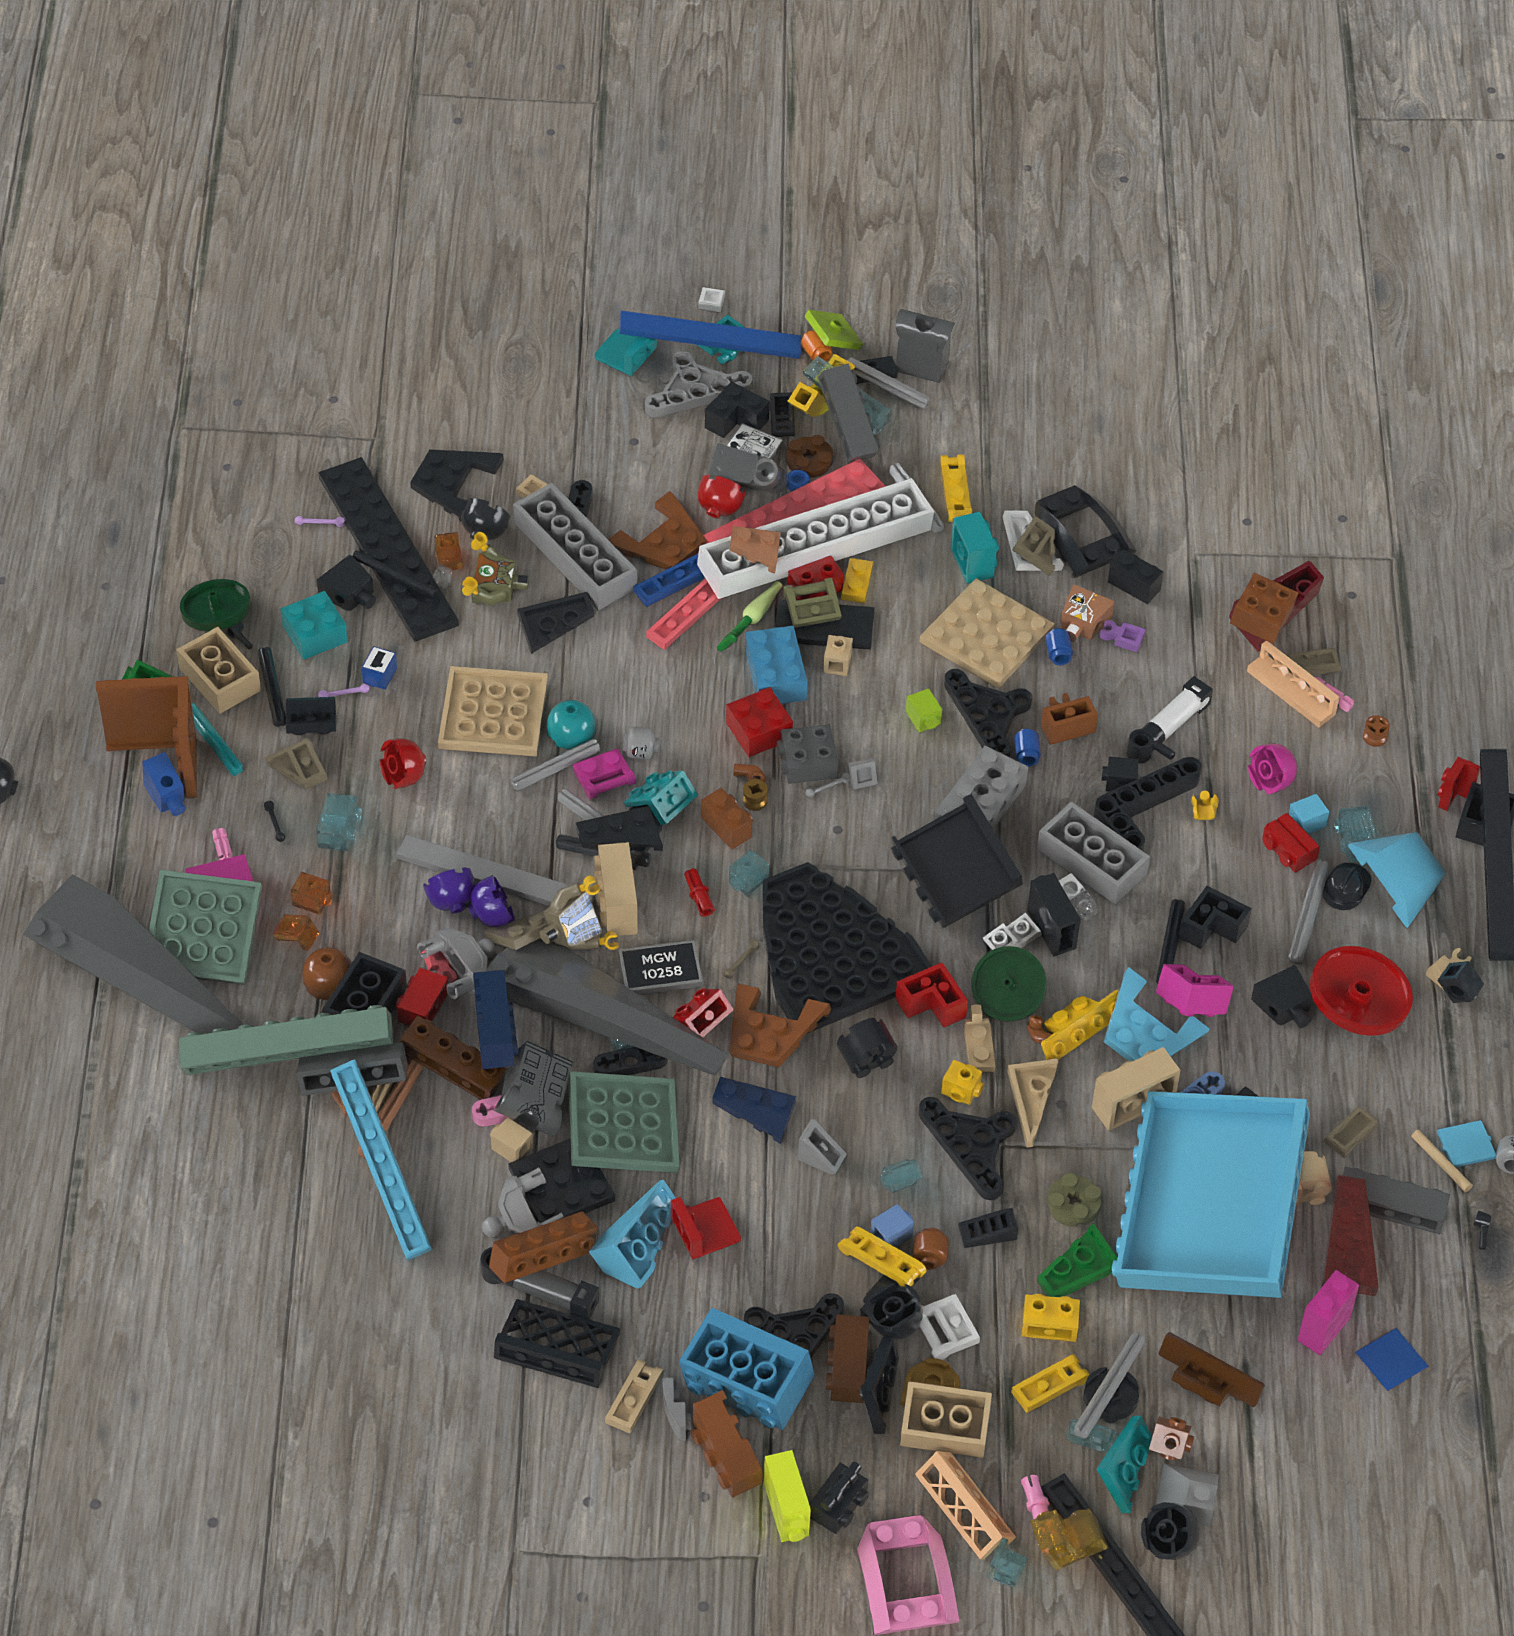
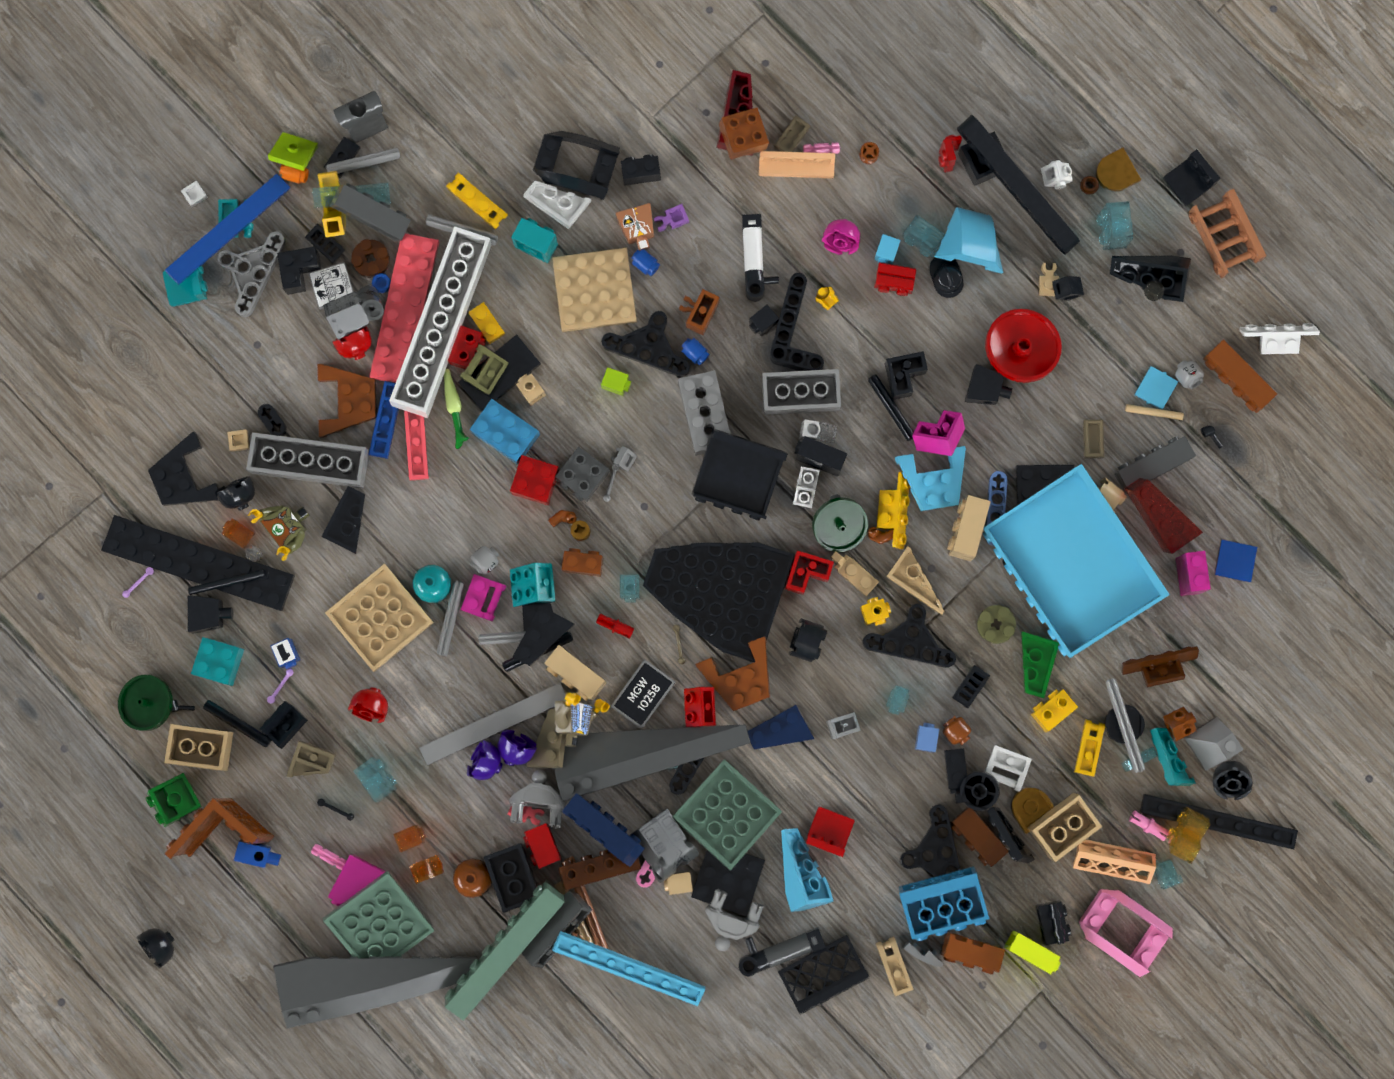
camera: 40 degrees left, 30 degrees up
(216, 742) = (243, 791): teal axle -> none
(542, 1247) = (769, 936): dark orange brick -> none
(756, 545) = (422, 368): nougat wing -> none
(882, 1256) = (939, 762): yellow plate -> none
(1037, 545) = (567, 203): dark tan wing -> none
(1308, 911) = (944, 314): light grey axle -> none

